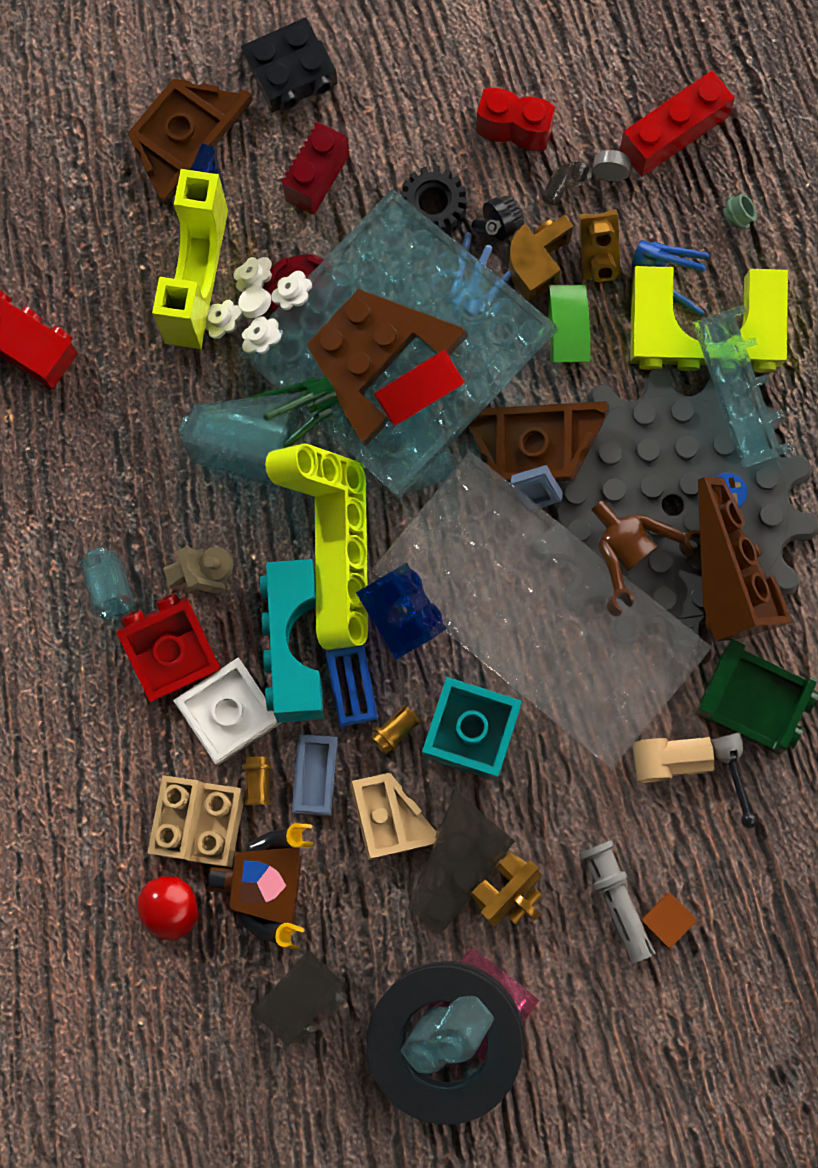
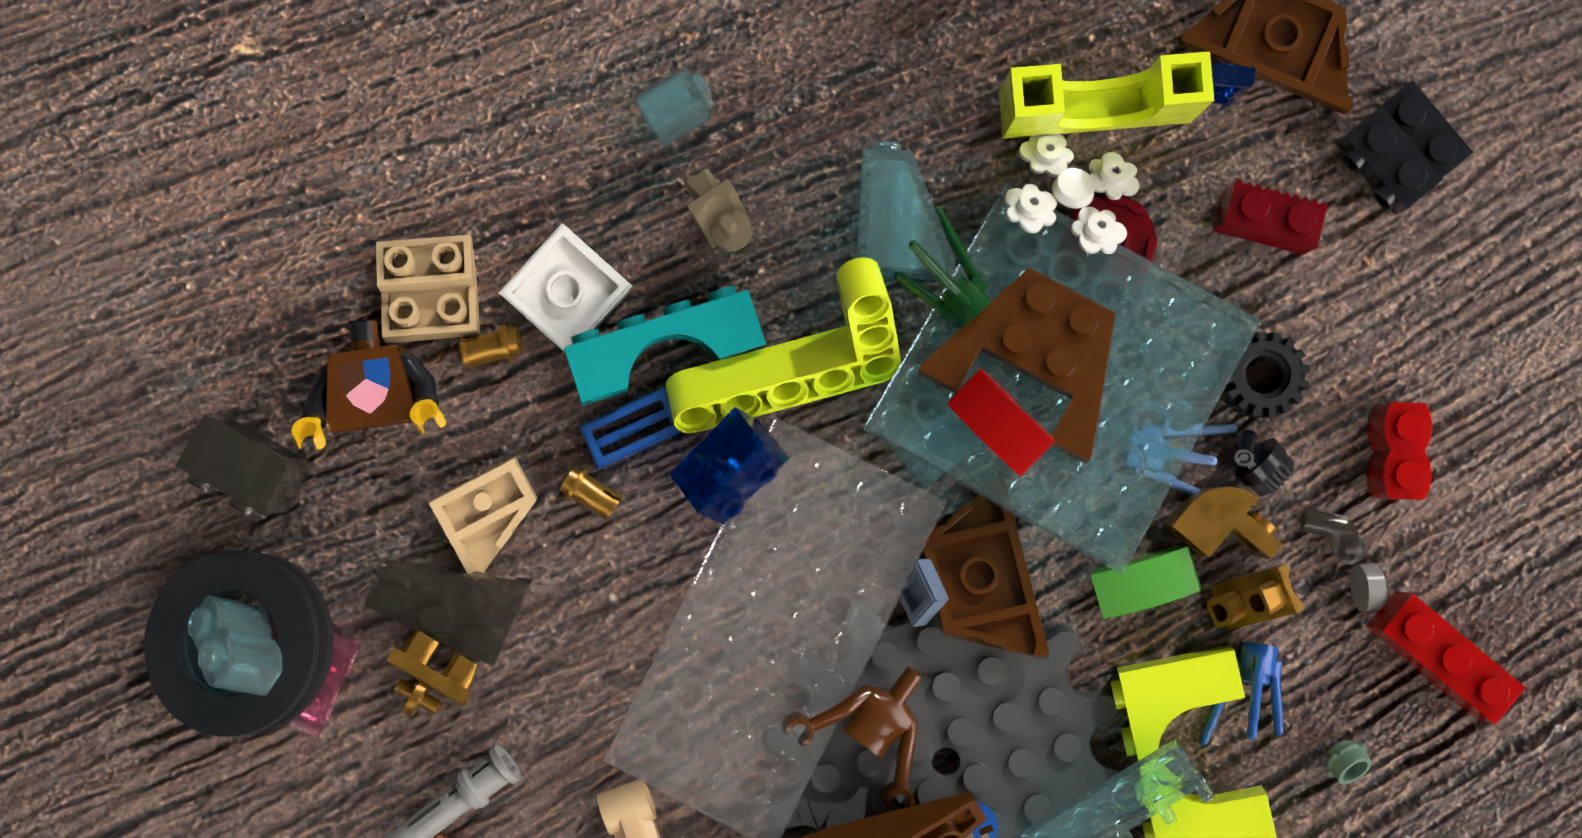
camera: 75 degrees right, 10 degrees up
(166, 646) = (622, 197): red plate -> none
(167, 908) = (321, 282): red hair -> none
(314, 775) = (515, 412): sand blue tile -> none
(471, 729) = (607, 585): teal brick -> none

